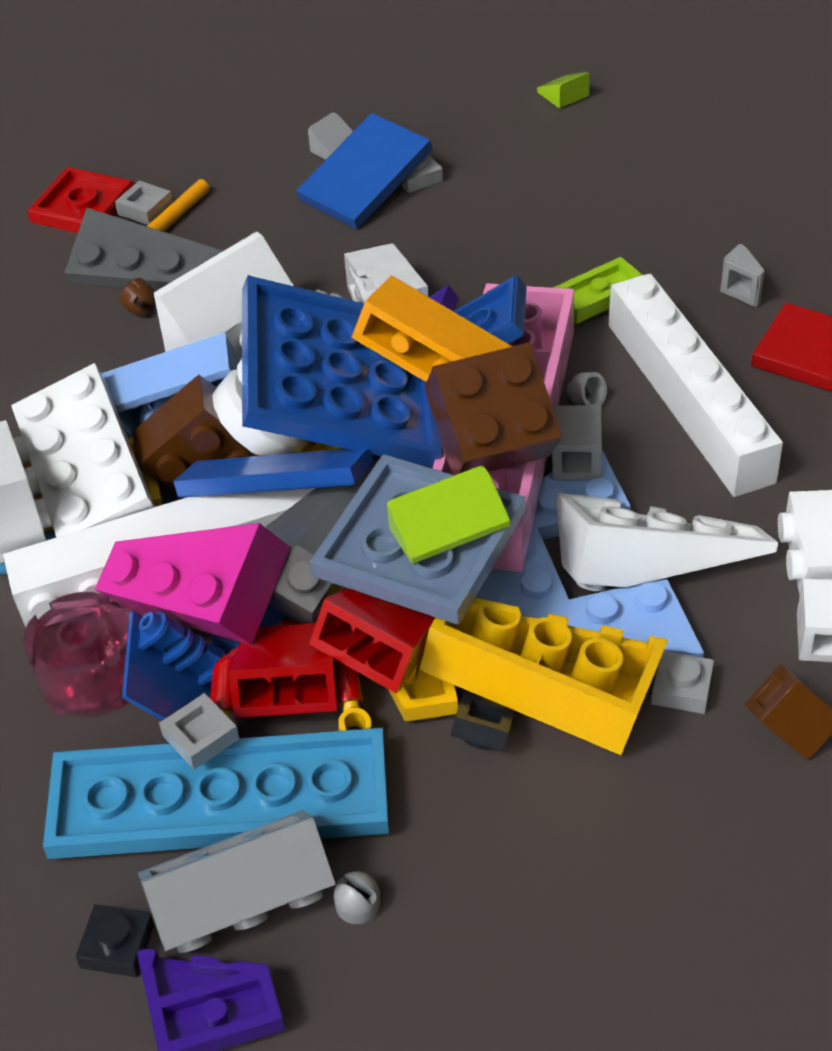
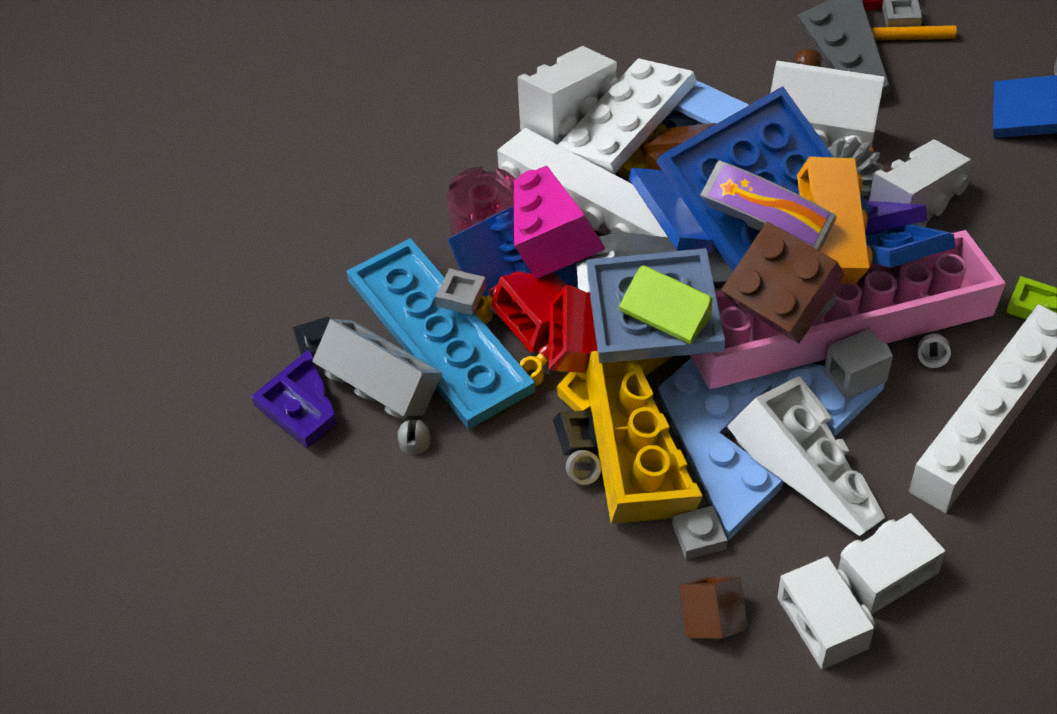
camera: 60 degrees right, 5 degrees up
(387, 367) = (761, 201): none -> slope
(531, 740) = (582, 475): none -> light grey hinge

